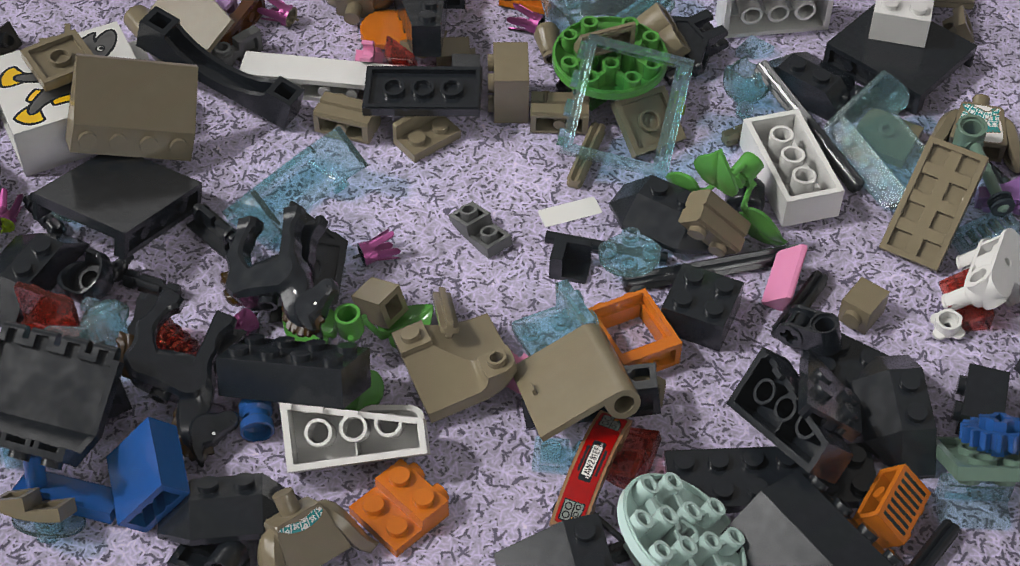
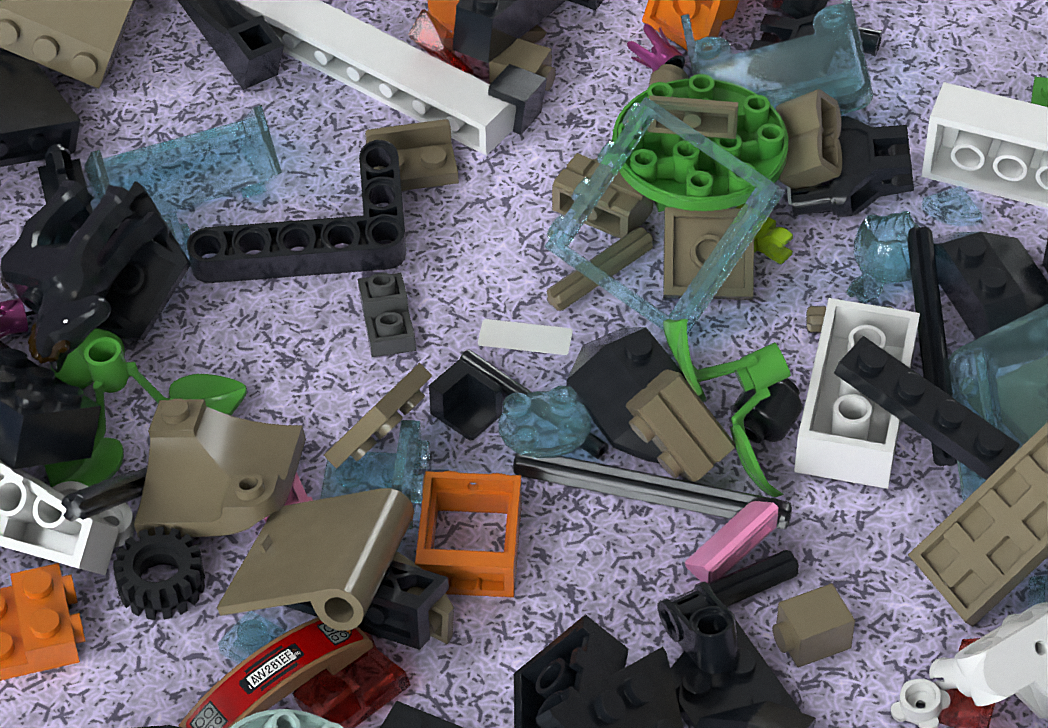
camera: 30 degrees right, 0 degrees up
(347, 113) = (325, 102): dark tan brick -> none
(370, 53) = (400, 24): bright pink plate -> none
(376, 249) = (229, 289): flat silver piece -> none
(380, 301) = (182, 357): dark tan brick -> none
(410, 198) = (315, 235): none -> black beam
(412, 401) = (104, 495): none -> black axle
(422, 91) = (429, 101): black plate -> none
(445, 312) = (246, 402): dark tan axle -> none
(463, 454) = (155, 551): none -> black tyre
(509, 82) = (555, 126): dark tan brick -> none
(537, 287) = (380, 418): none -> dark tan plate
(702, 306) = (586, 533): black brick -> none
(844, 159) = (925, 408): none -> black plate

